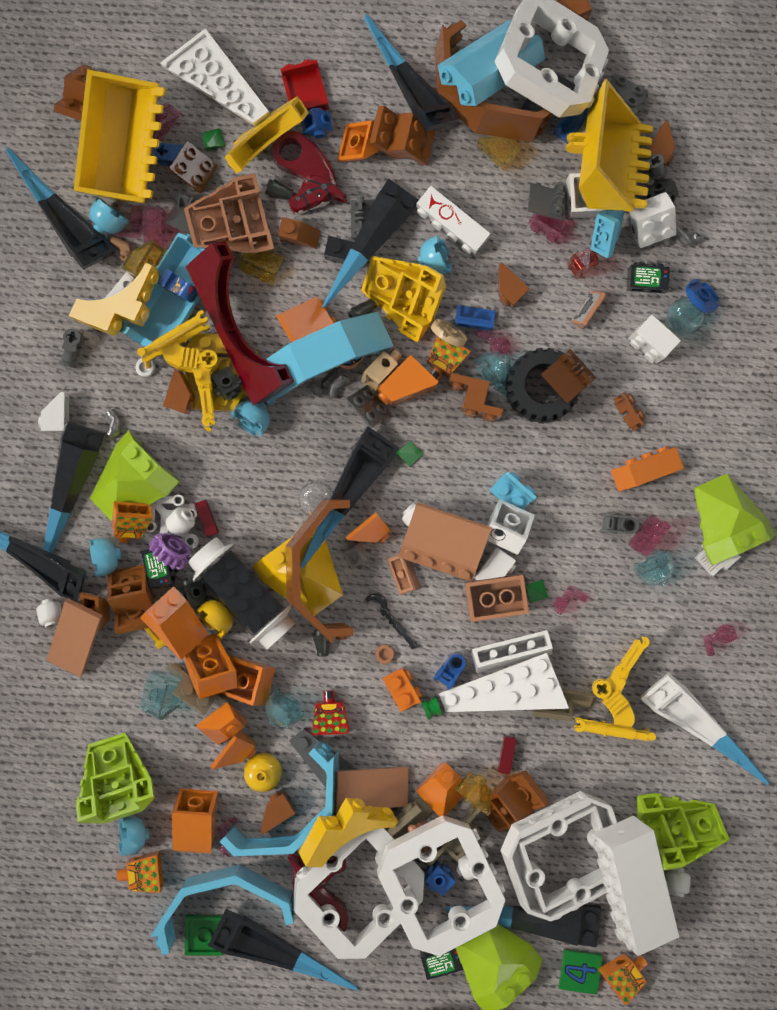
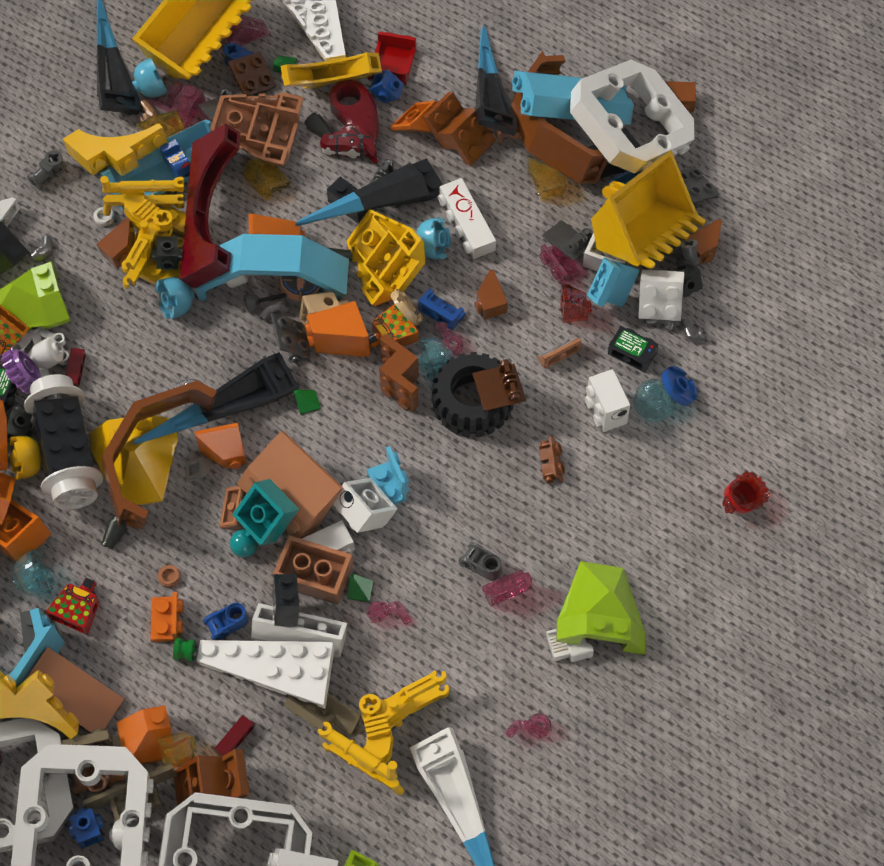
camera: 30 degrees right, 25 degrees down
(298, 233) = (314, 166): dark orange slope -> none
(385, 612) = (194, 535): black piece -> none
(439, 581) = (264, 515): none -> teal brick
(495, 640) = (285, 600): none -> black brick
(647, 468) = (539, 518): orange wedge -> none
(659, 568) = (496, 622): clear light blue cylinder -> none

